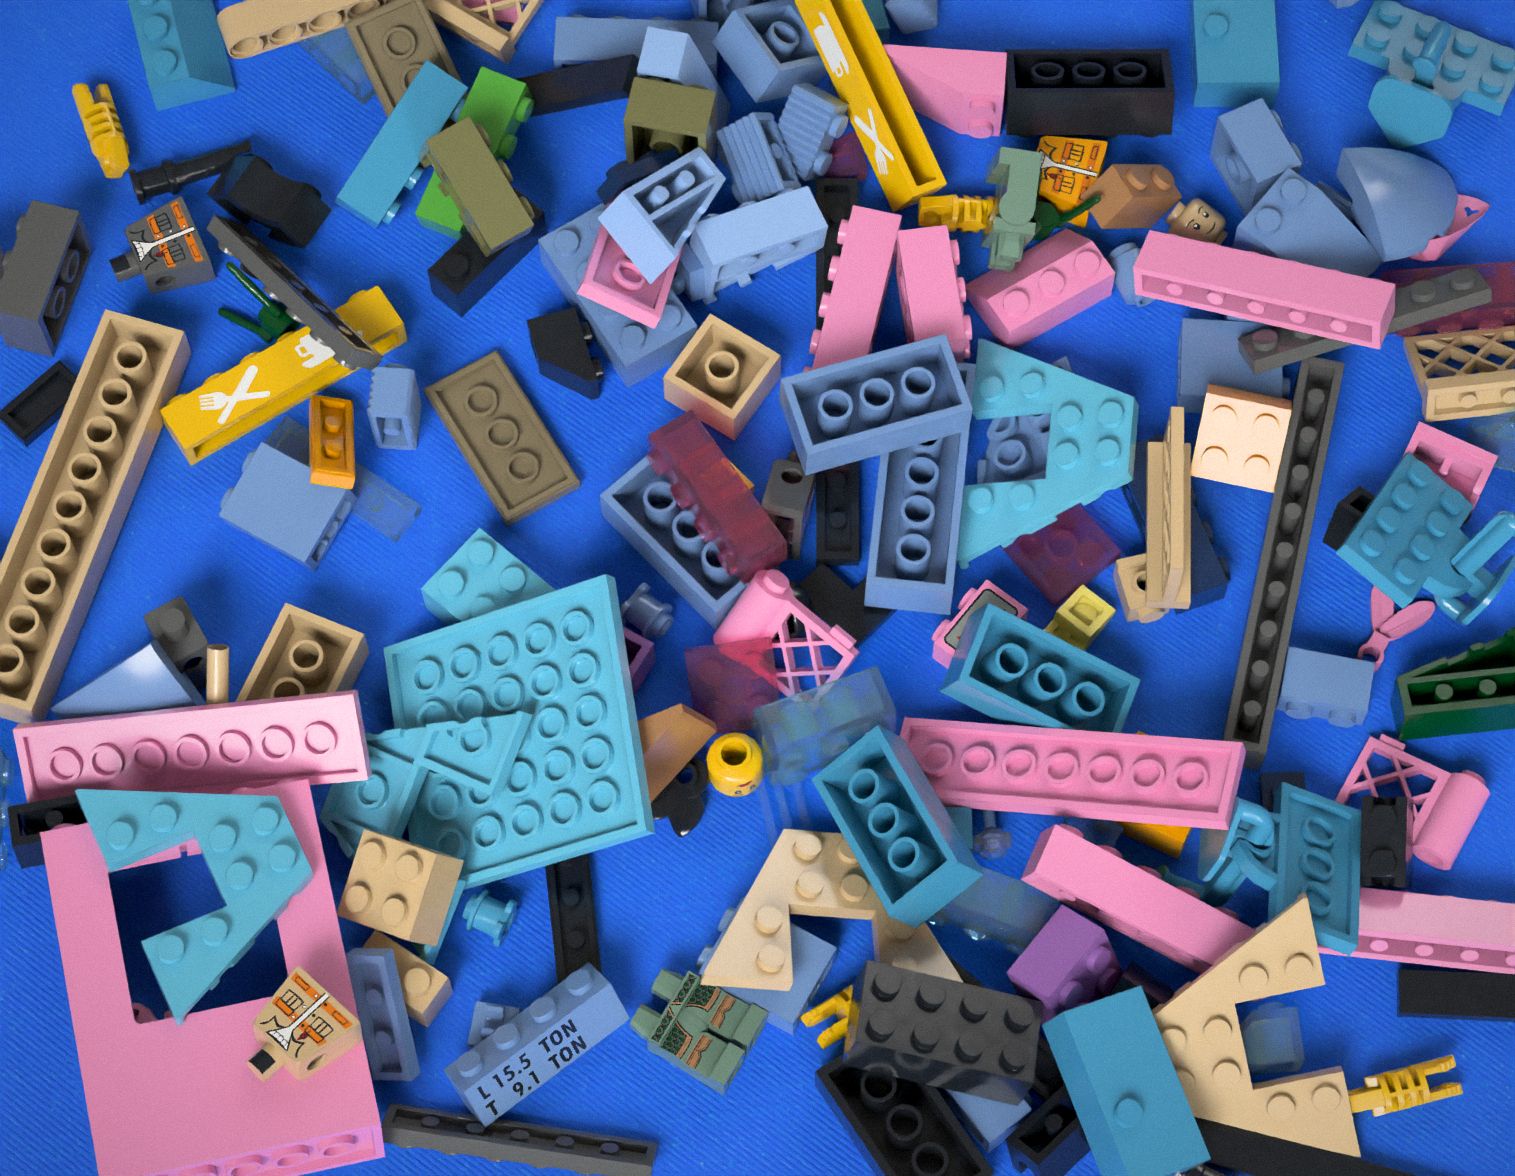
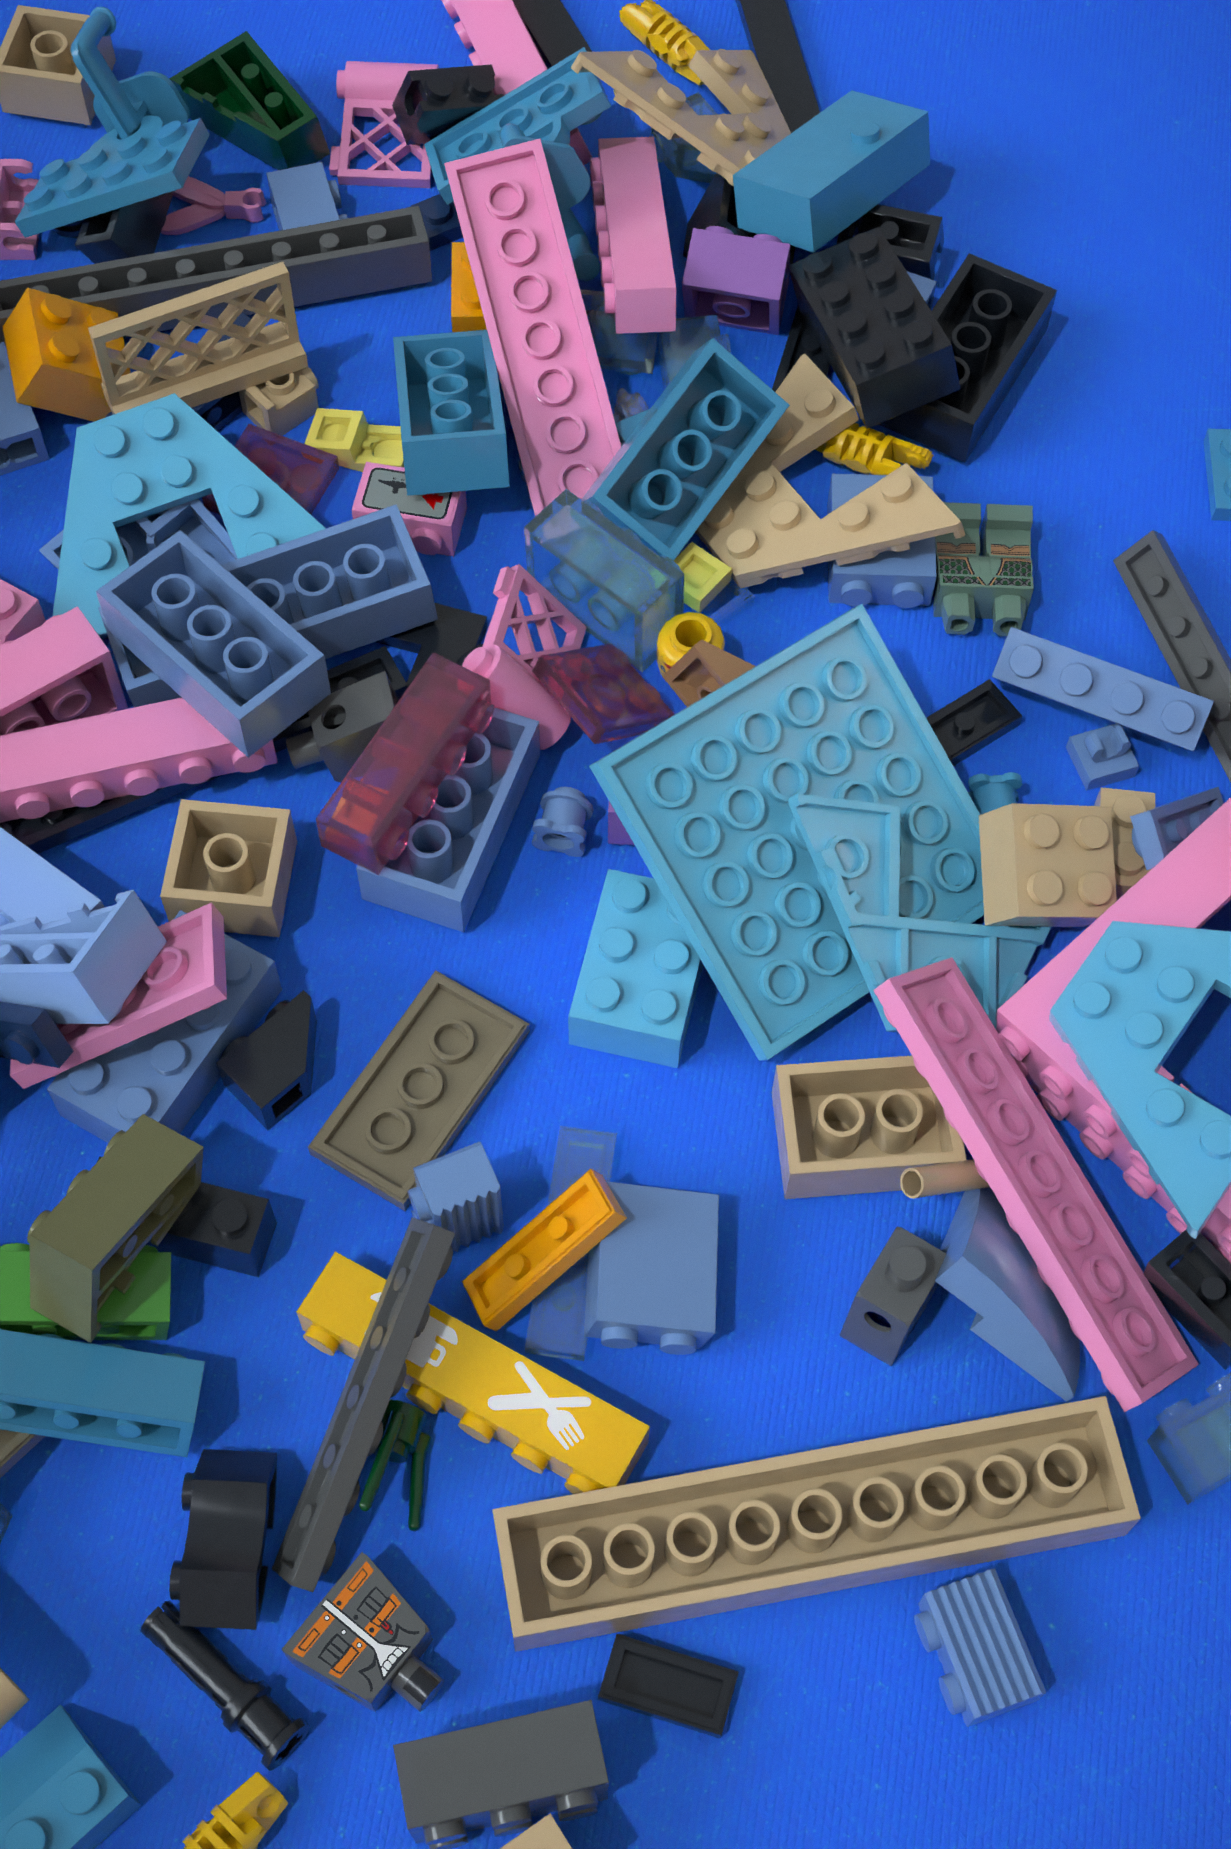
camera: 120 degrees left, 5 degrees down
(799, 802) = (703, 576): none -> light yellow plate

